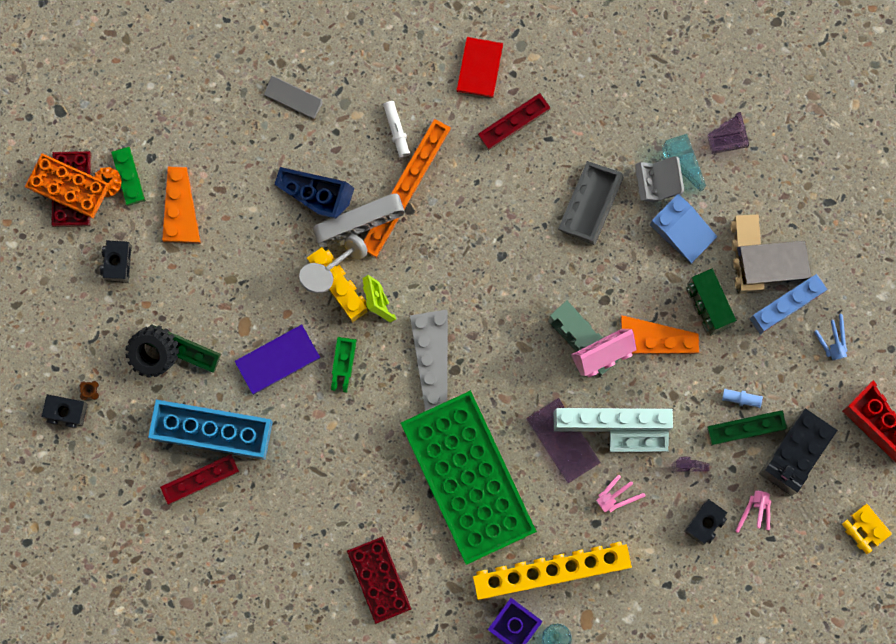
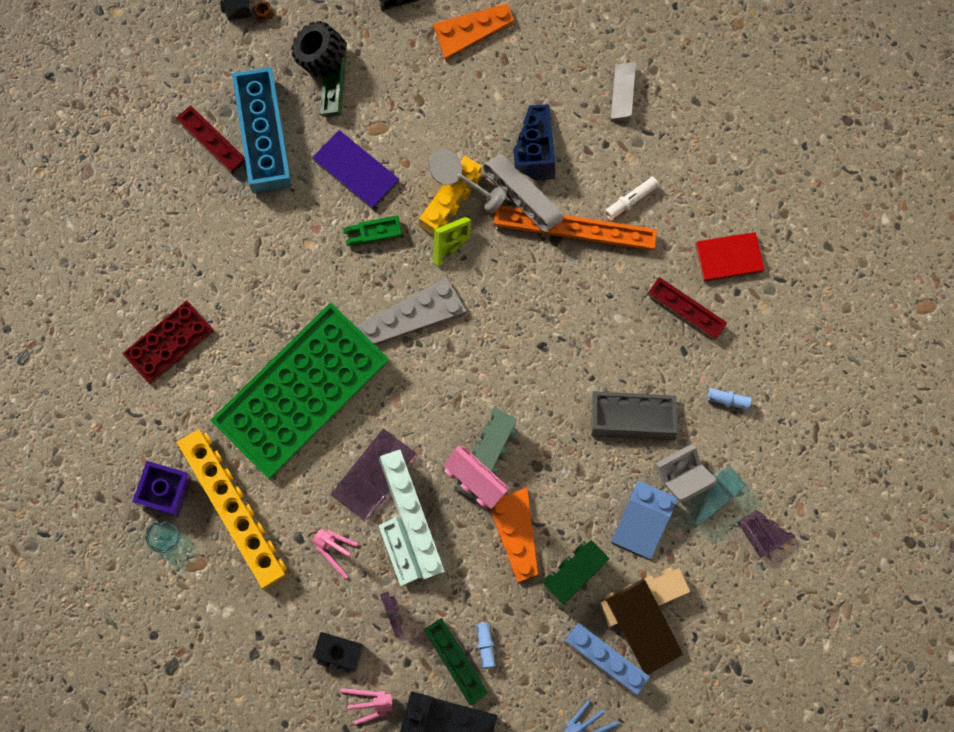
camera: 65 degrees right, 5 degrees down
(605, 118) = (729, 399): none -> light blue pin

